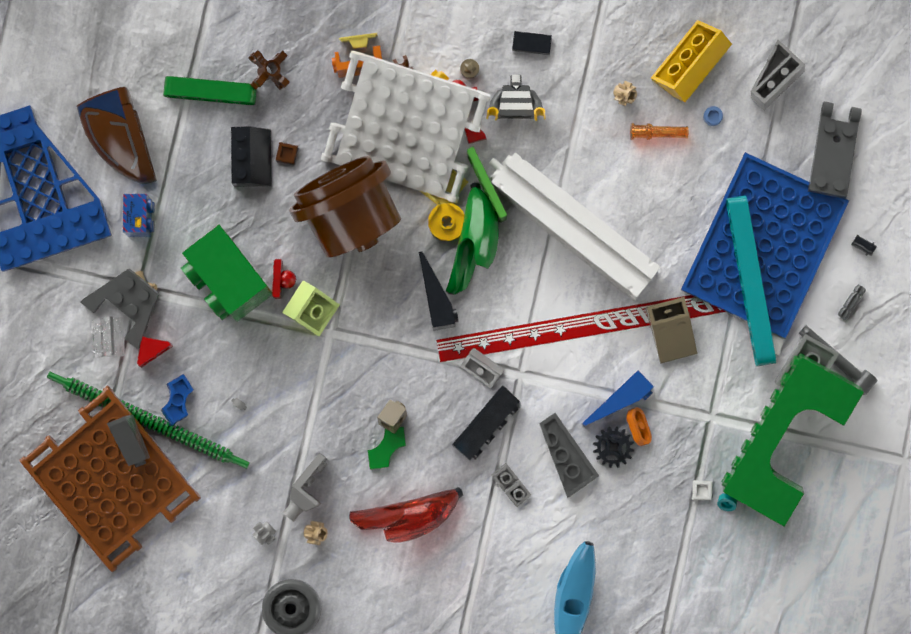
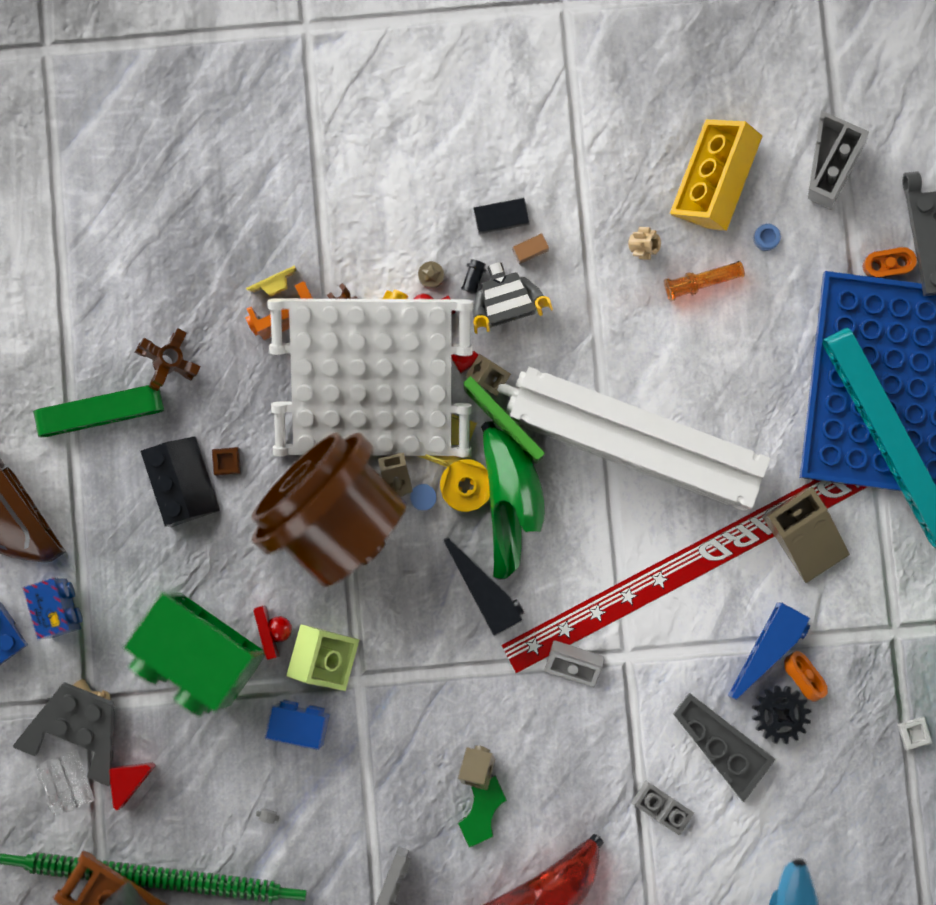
camera: 20 degrees left, 0 degrees up
(175, 408) = (184, 849): blue tile -> none
(279, 347) = (298, 725): none -> blue brick
(403, 193) = (393, 467): none -> dark tan brick
(415, 221) = (423, 497): none -> medium blue tile
(484, 148) = (485, 371): none -> dark tan brick
(486, 422) = (603, 738): black slope -> none
(498, 79) = (473, 276): none -> black pin
(544, 72) = (530, 248): none -> medium nougat piece
(792, 159) = (888, 262): none -> orange plate

